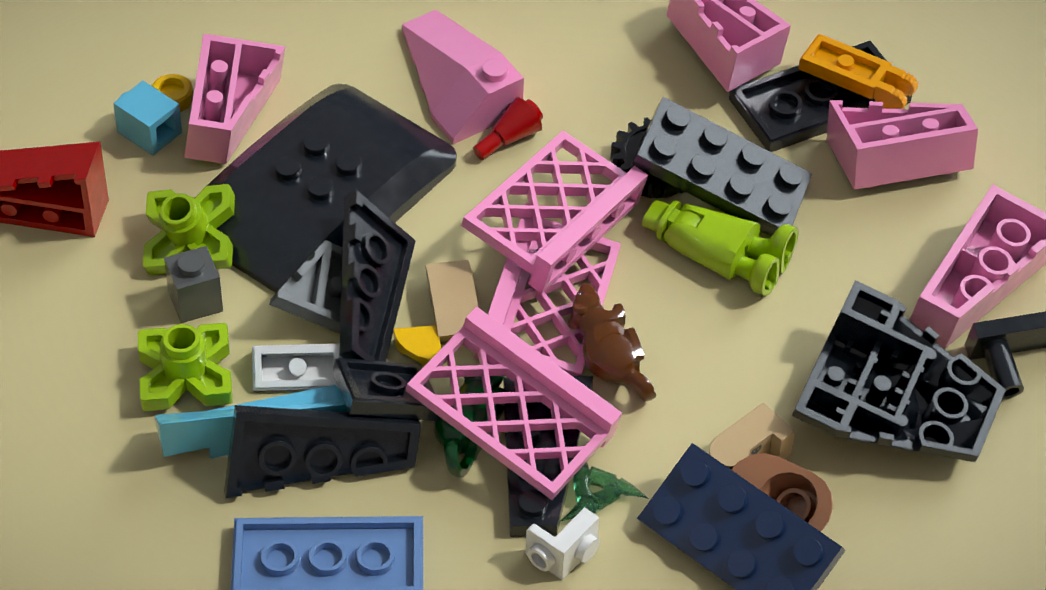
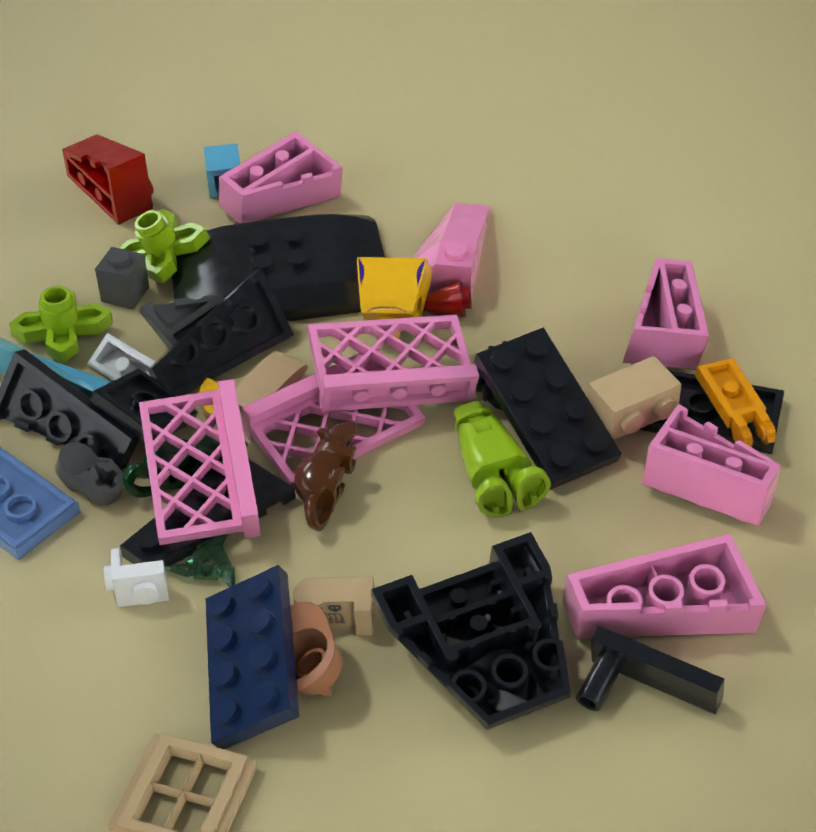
camera: 45 degrees right, 5 degrees down
(395, 485) = (93, 475): none -> dark grey piece
(474, 144) = (393, 287): none -> yellow torso
(784, 114) = (634, 396): none -> tan brick

